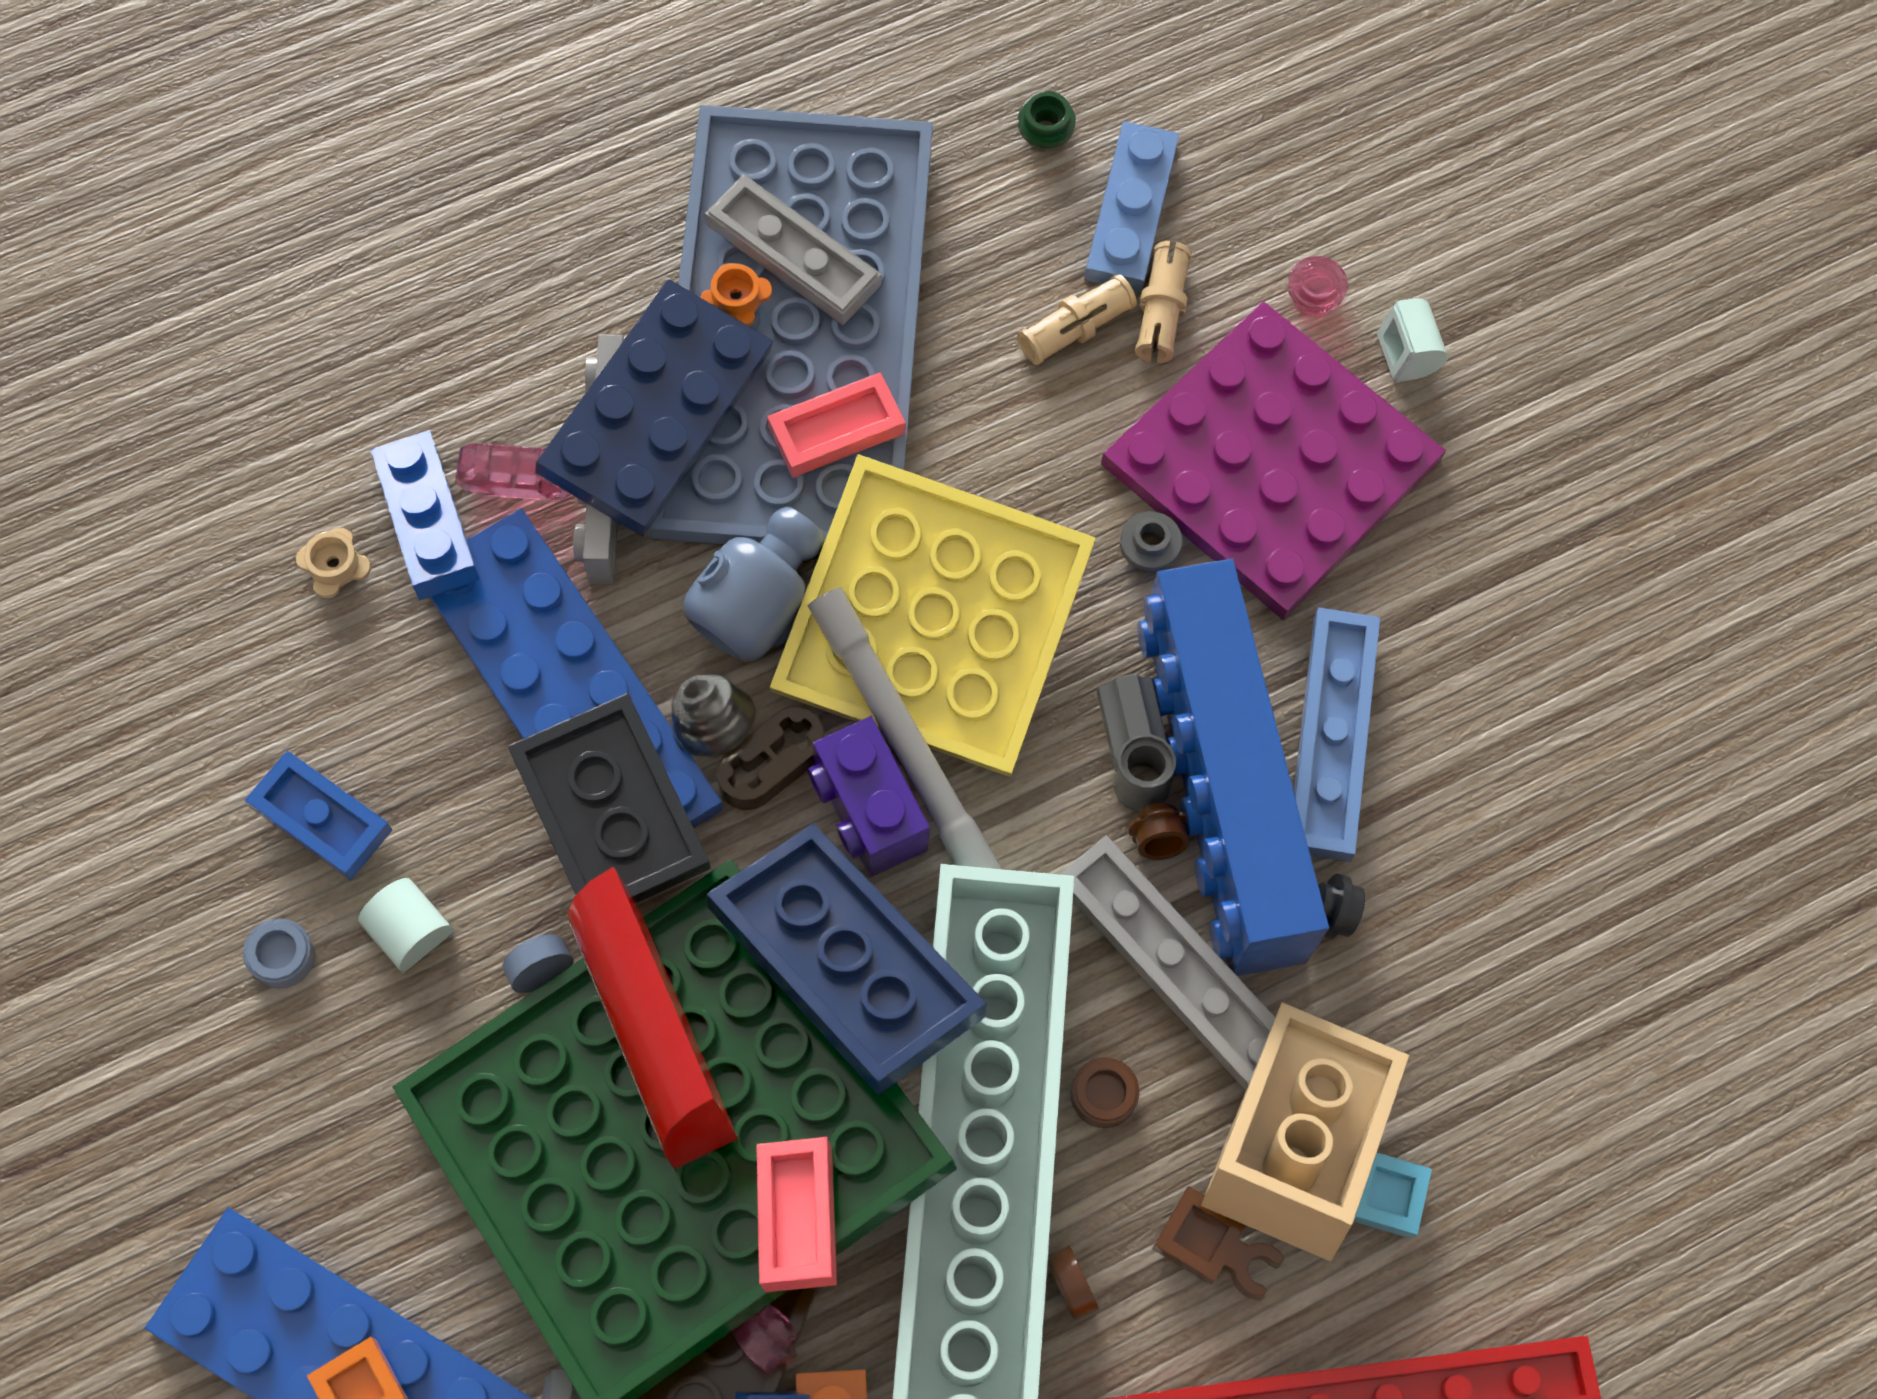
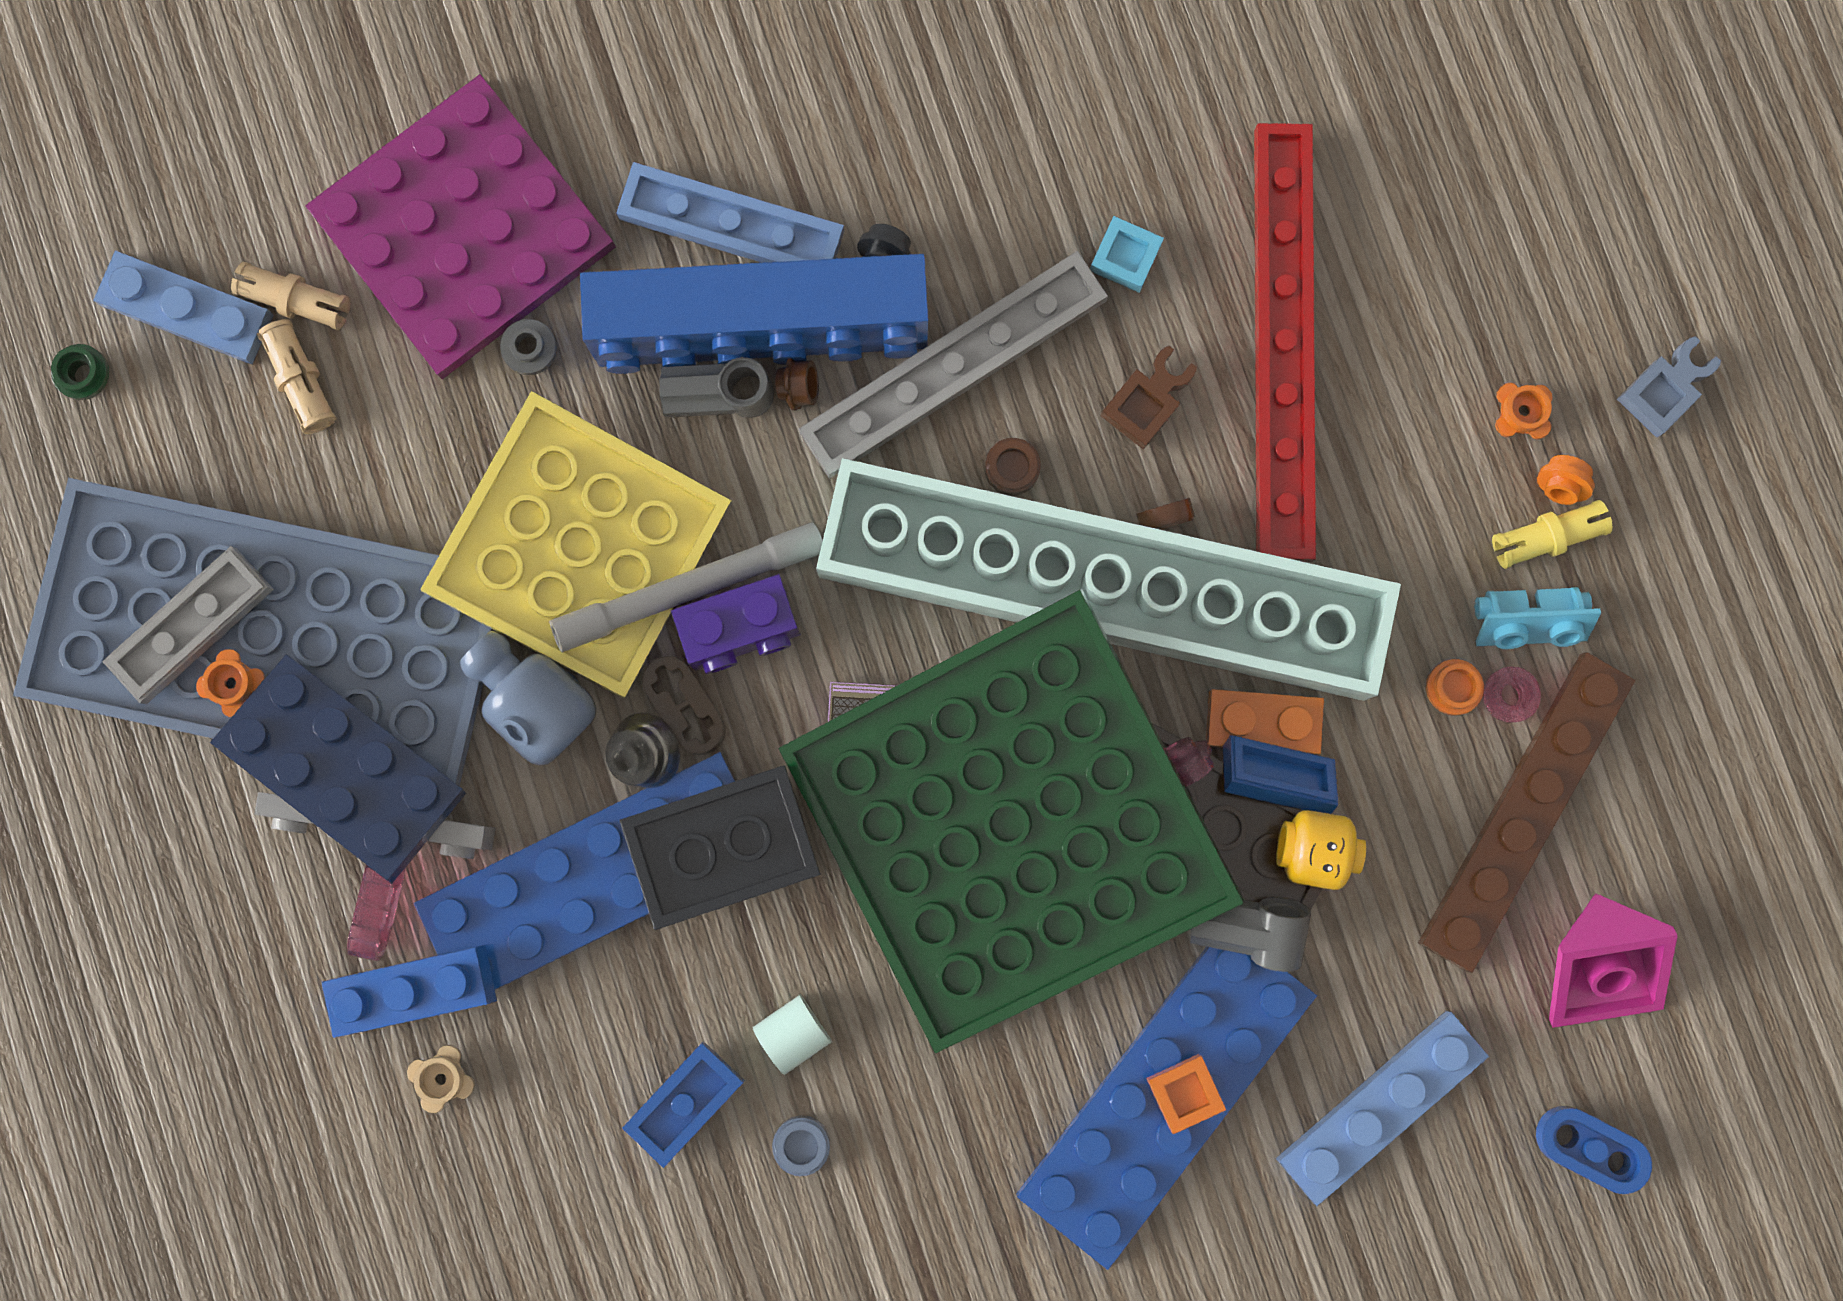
camera: 80 degrees left, 15 degrees up
(536, 962) = (843, 923): sand blue tile -> none
(648, 1021) = (923, 828): red brick -> none
(796, 1215) = (1107, 722): coral tile -> none
(836, 424) = (378, 607): coral tile -> none
(846, 958) = (890, 657): dark blue plate -> none
(1306, 1132) = (1077, 306): tan slope -> none
(1317, 285) = (294, 154): clear pink plate -> none
(1411, 341) = (366, 81): light aqua brick -> none

